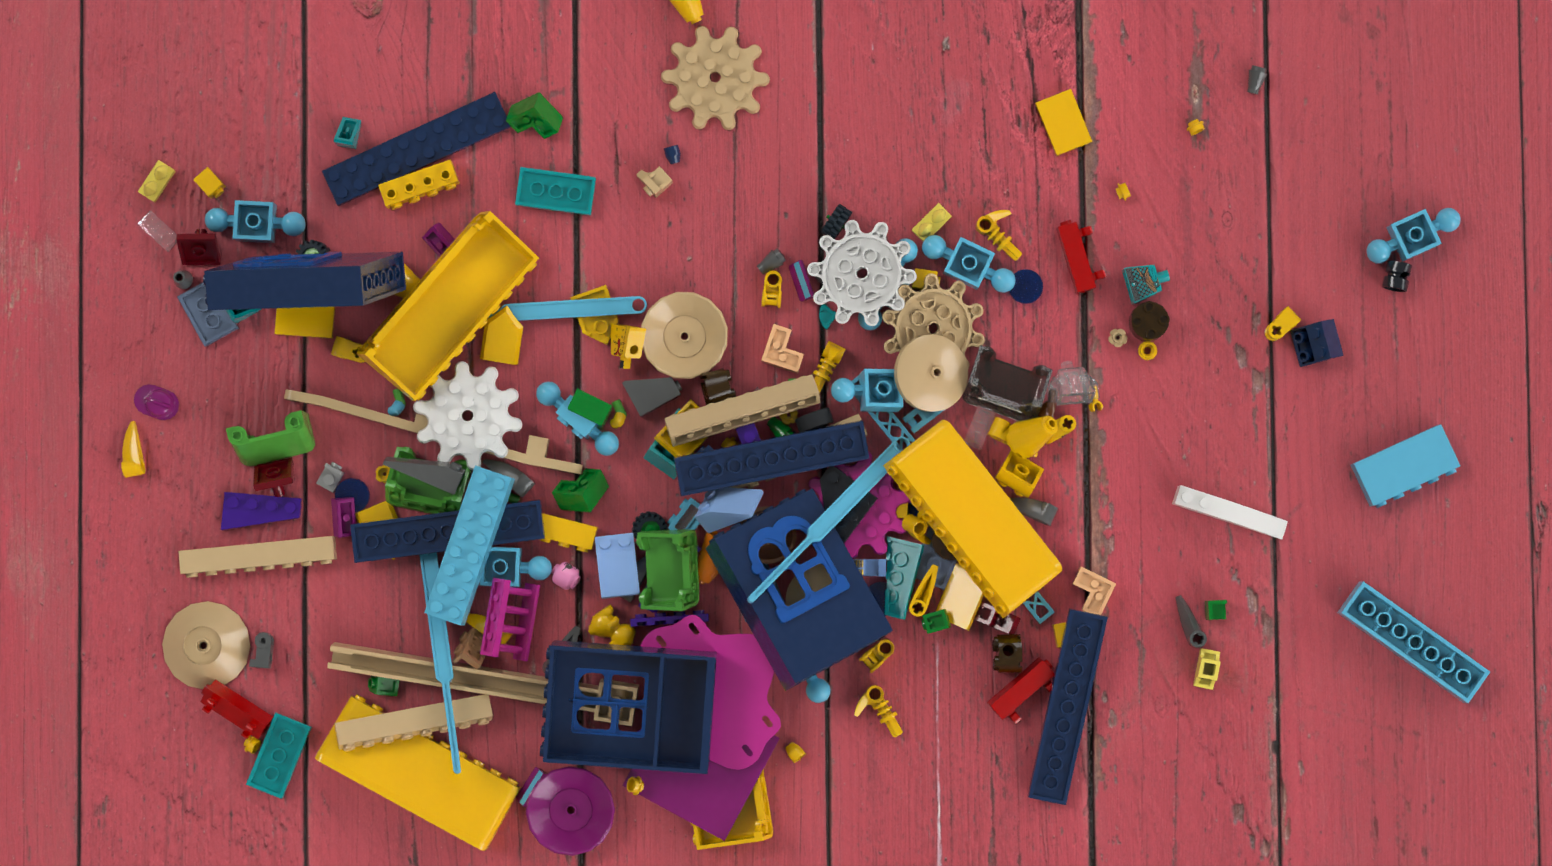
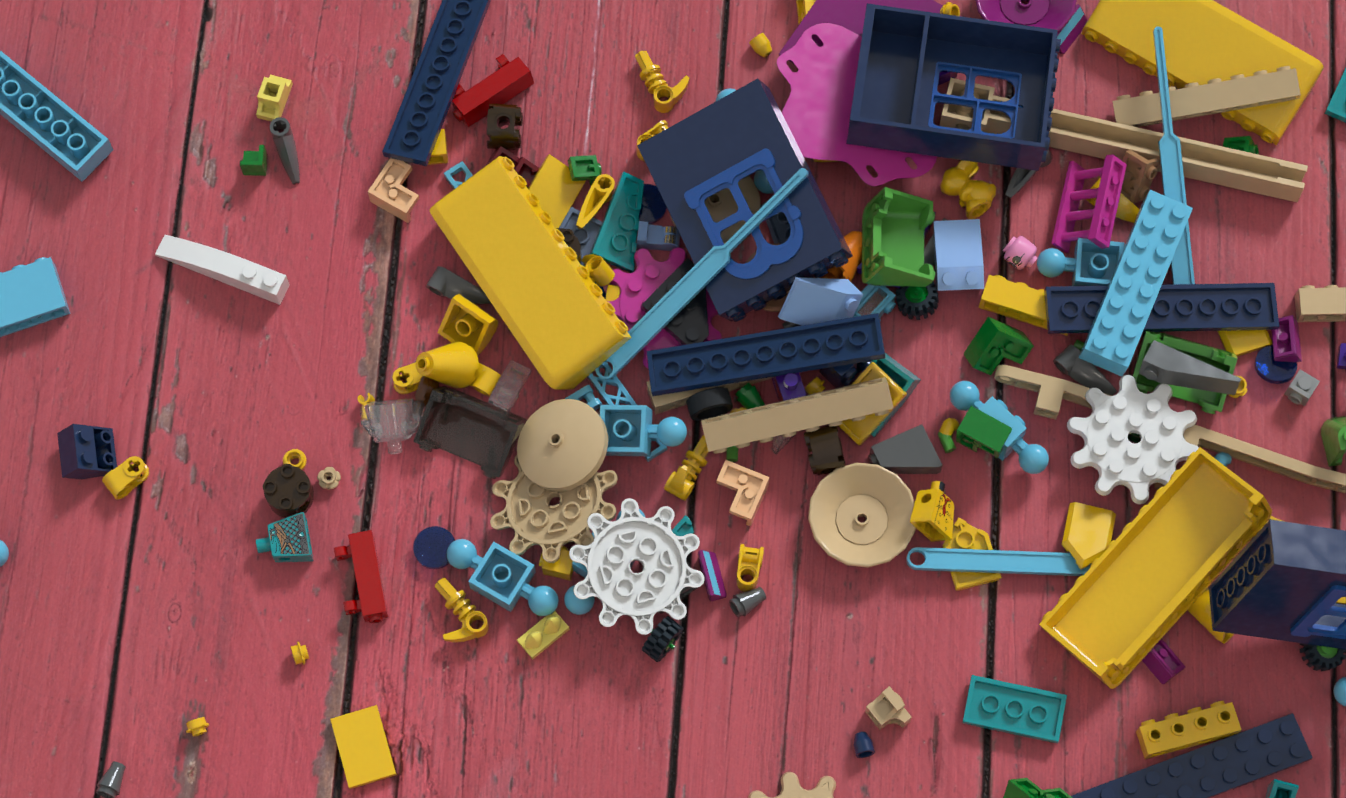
camera: 175 degrees left, 15 degrees down
(661, 618) = (935, 192): dark purple wing -> none

